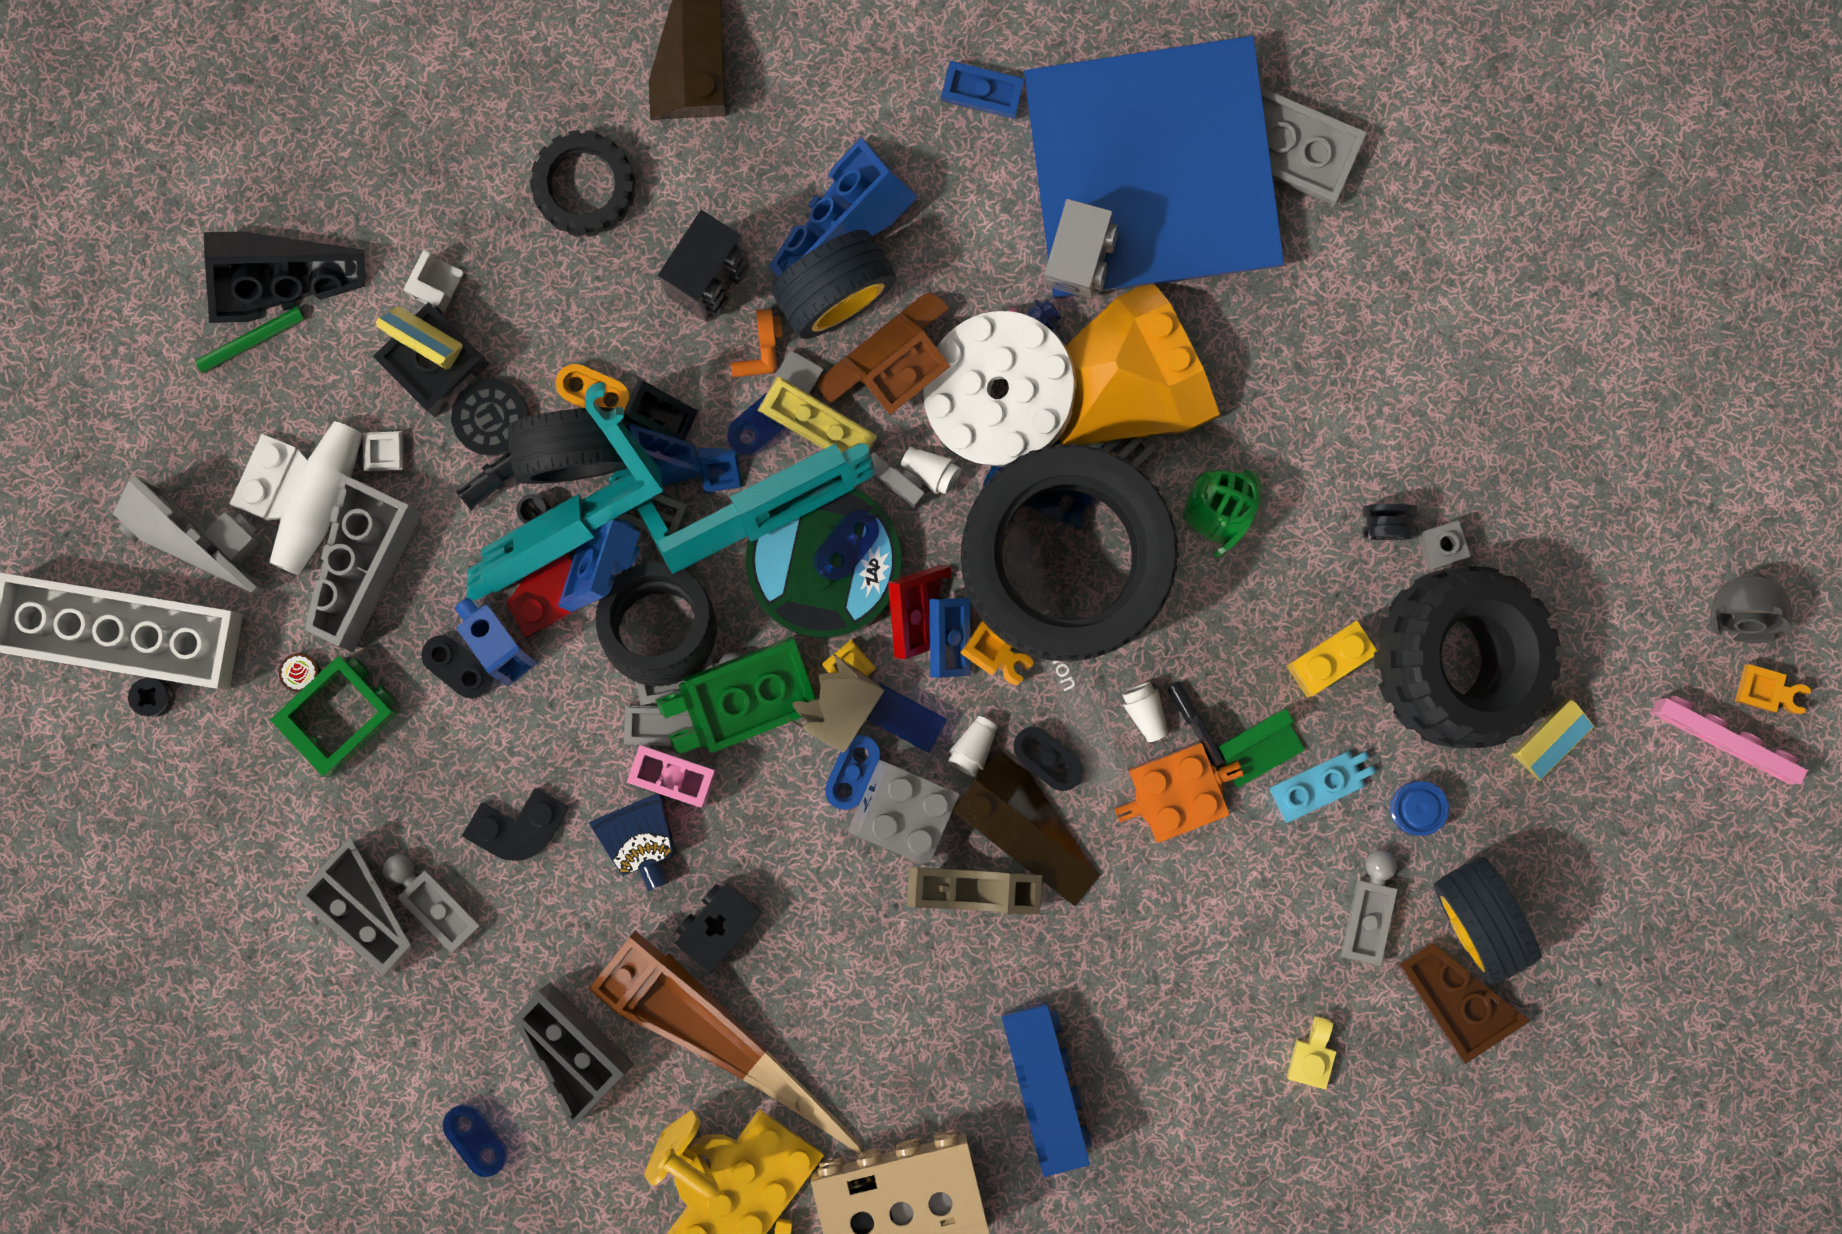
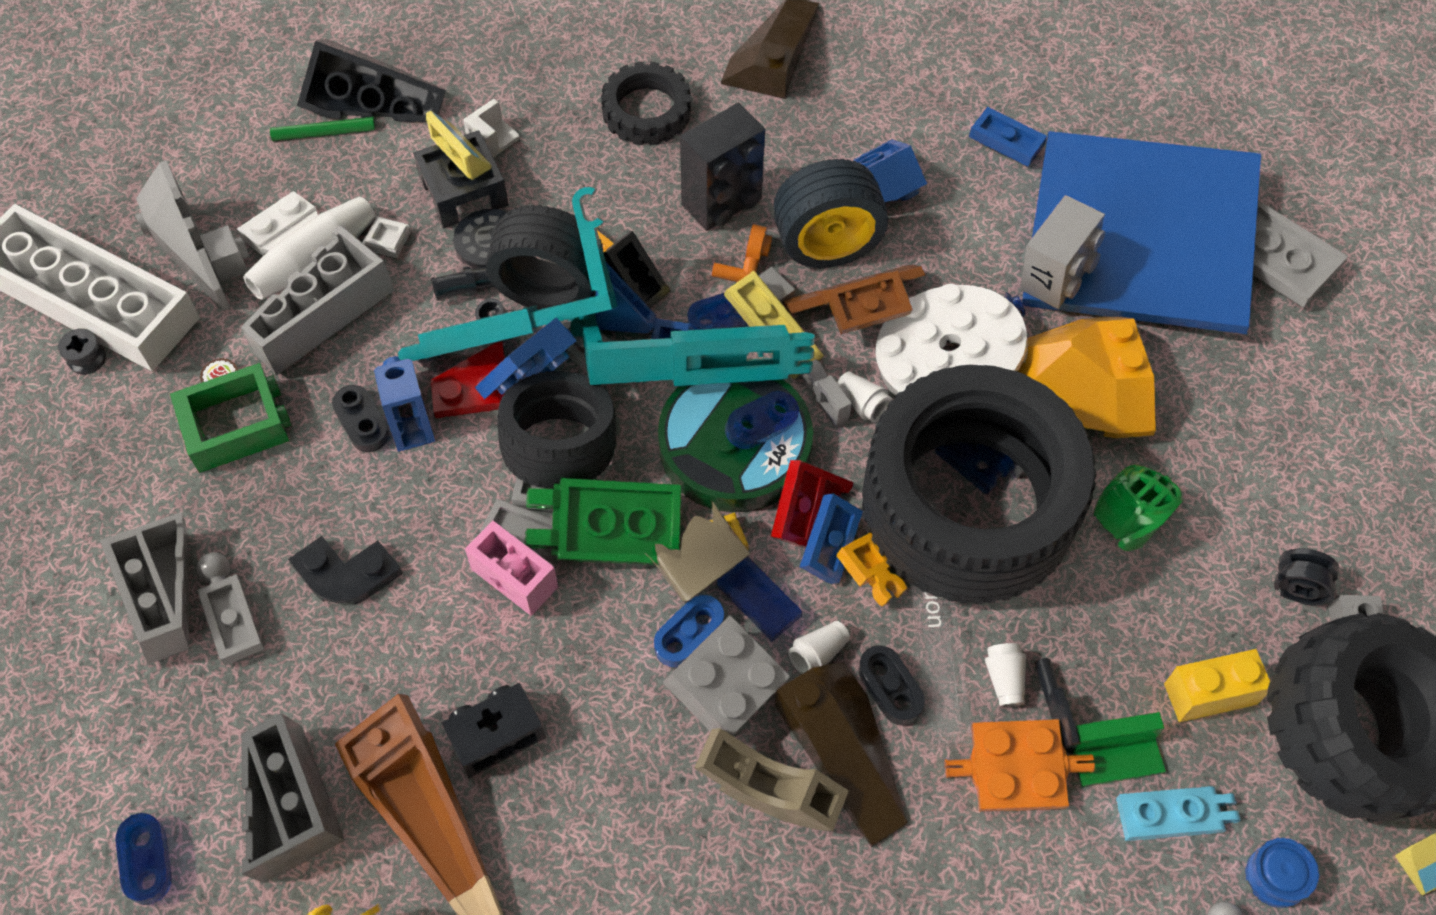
camera: 20 degrees right, 25 degrees down
(638, 839) = (453, 617): dark blue torso -> none

